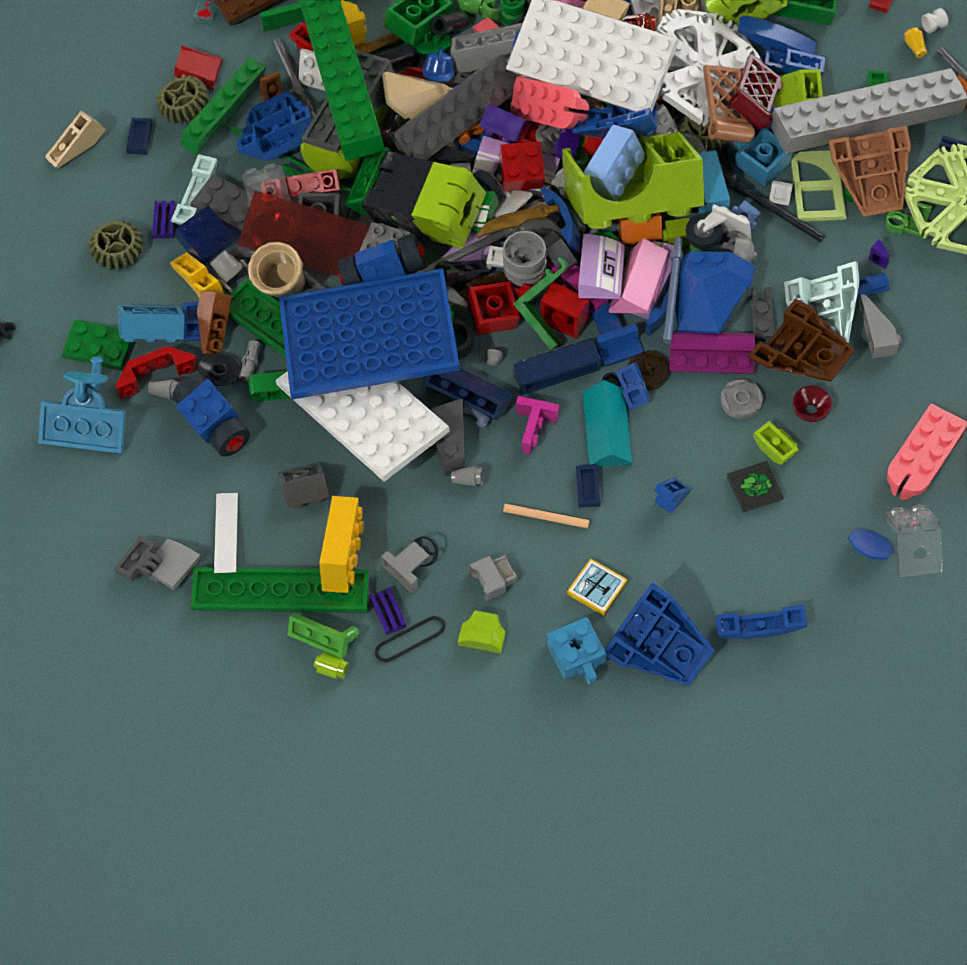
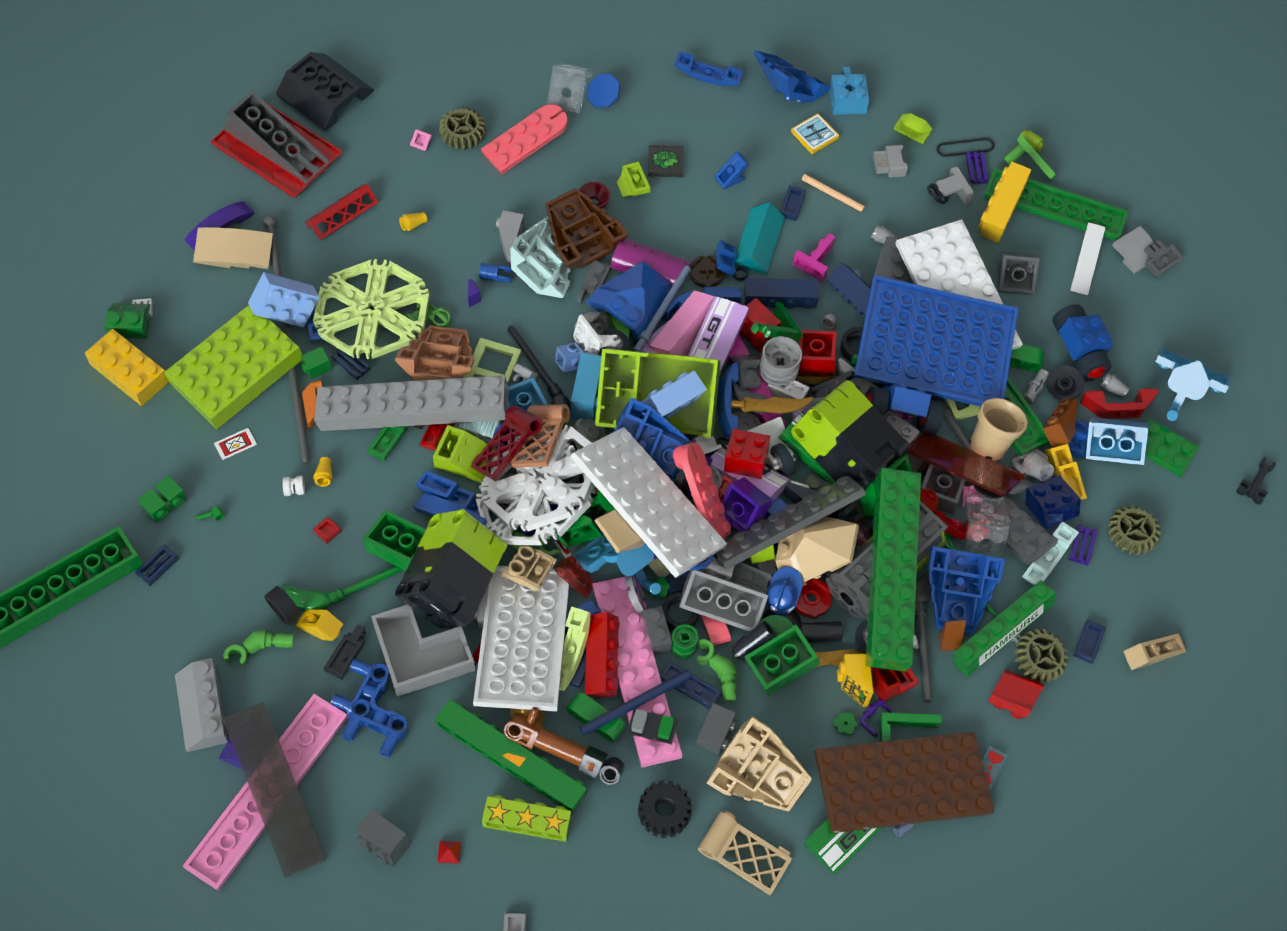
camera: 165 degrees left, 0 degrees up
(741, 399) = (643, 226): light grey tile -> none

